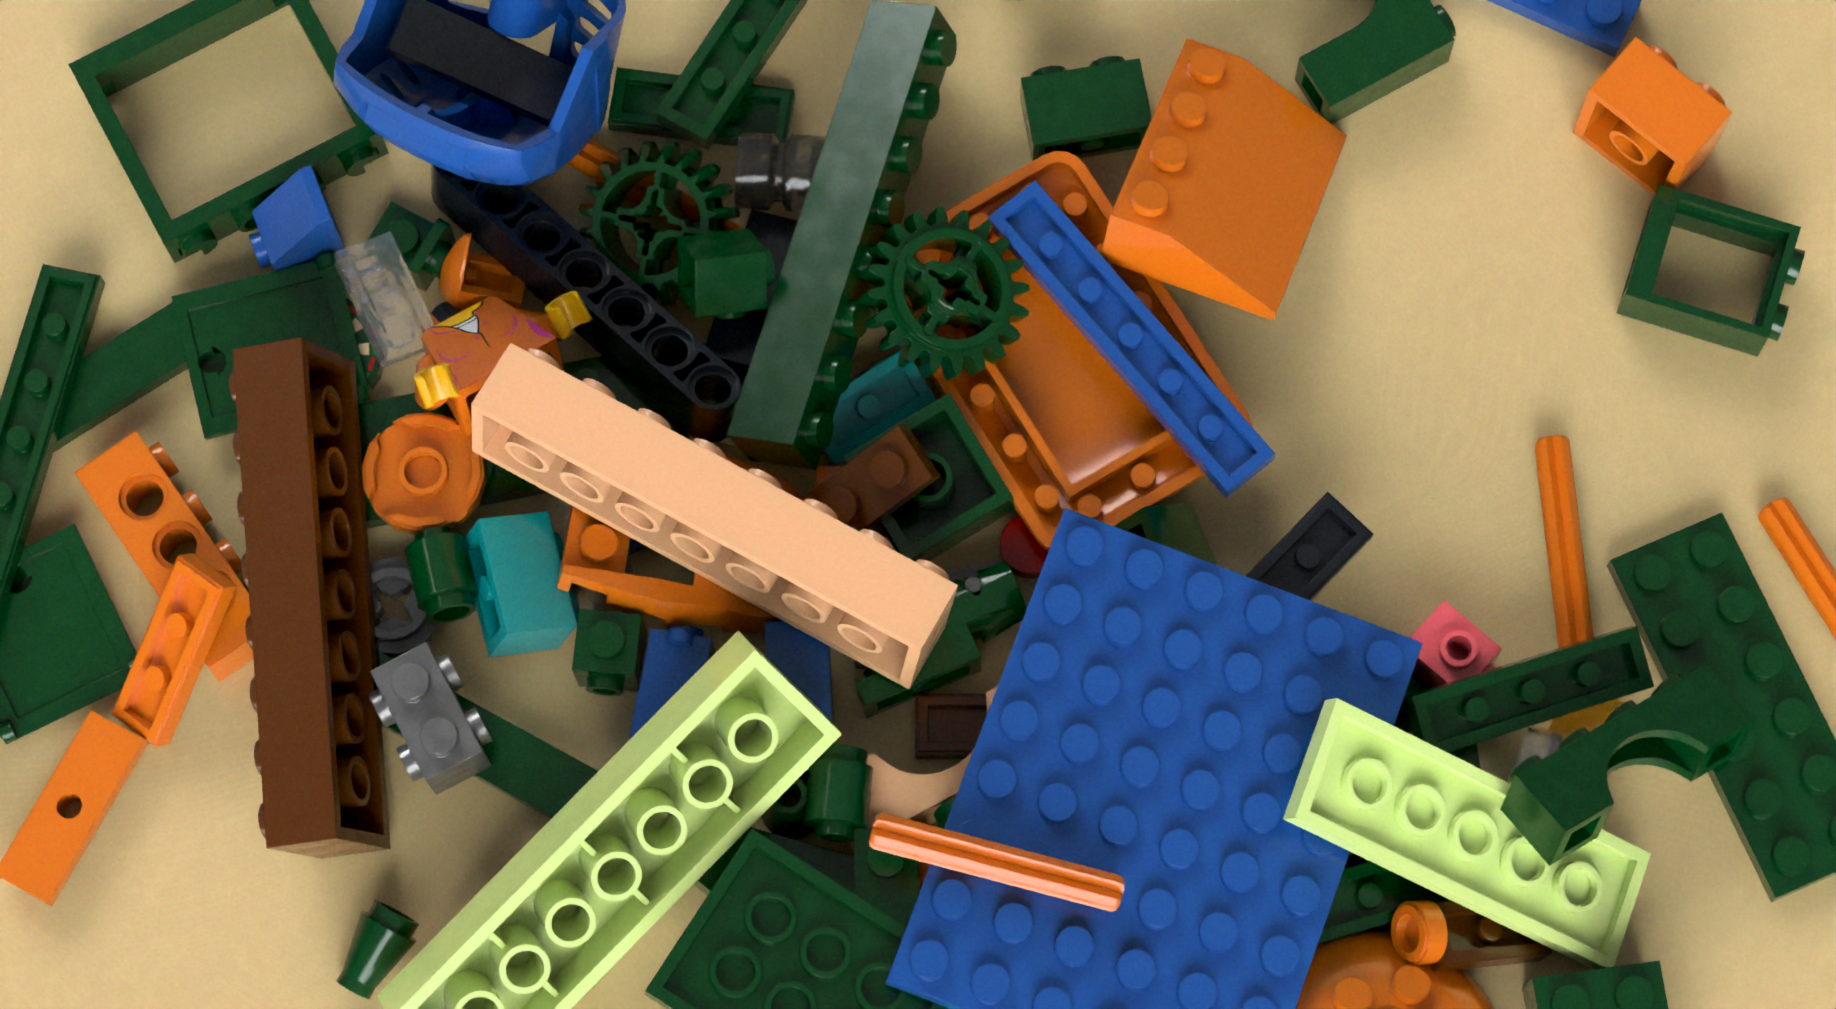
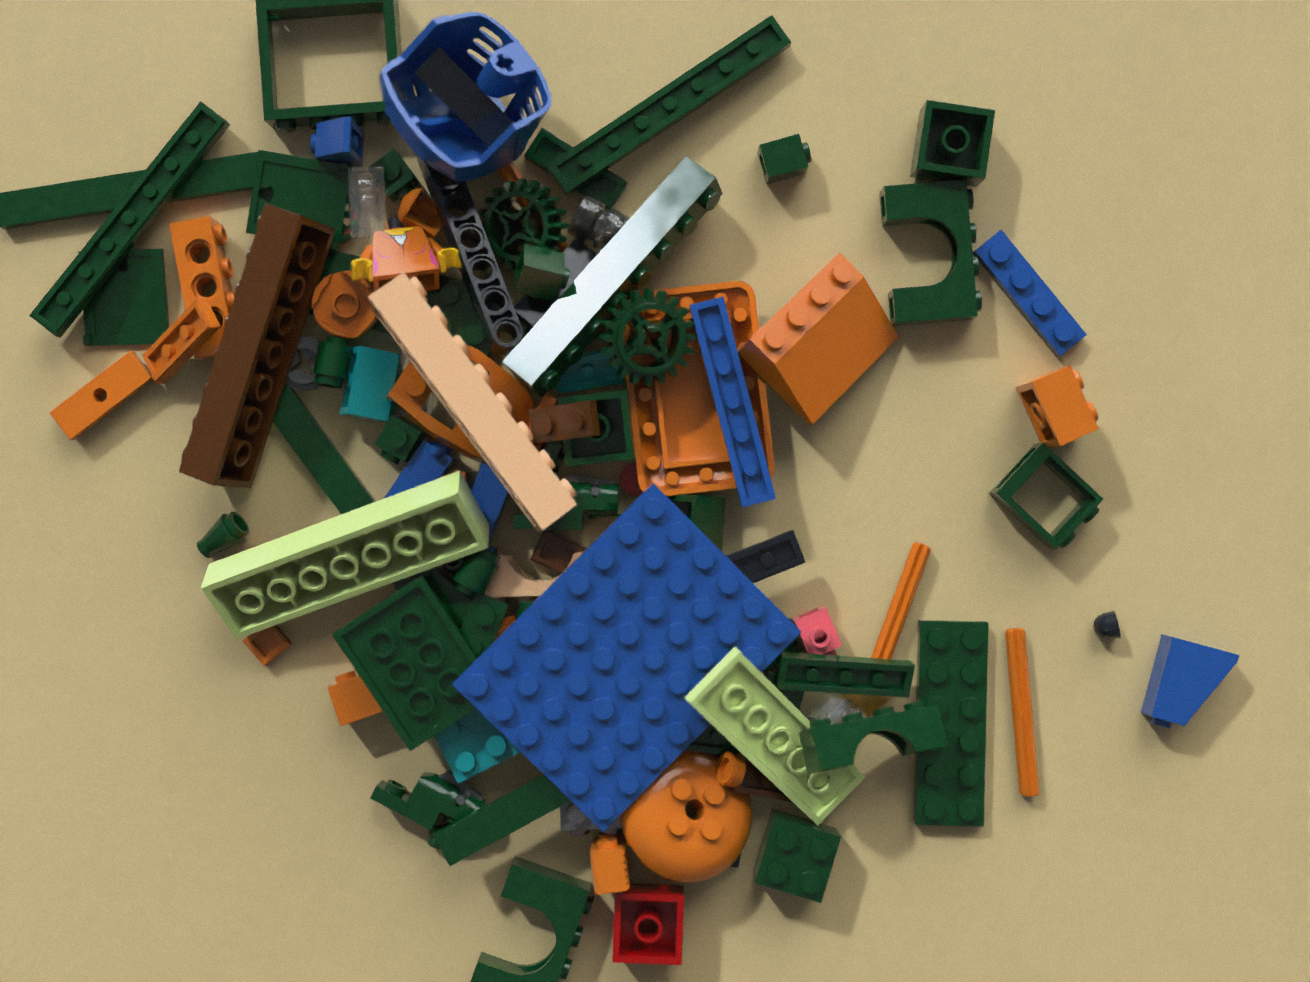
camera: 20 degrees right, 15 degrees up
(439, 736) = (293, 435): flat silver brick -> none
(997, 862) = (531, 654): orange axle -> none
(1086, 108) = (771, 262): dark green brick -> none

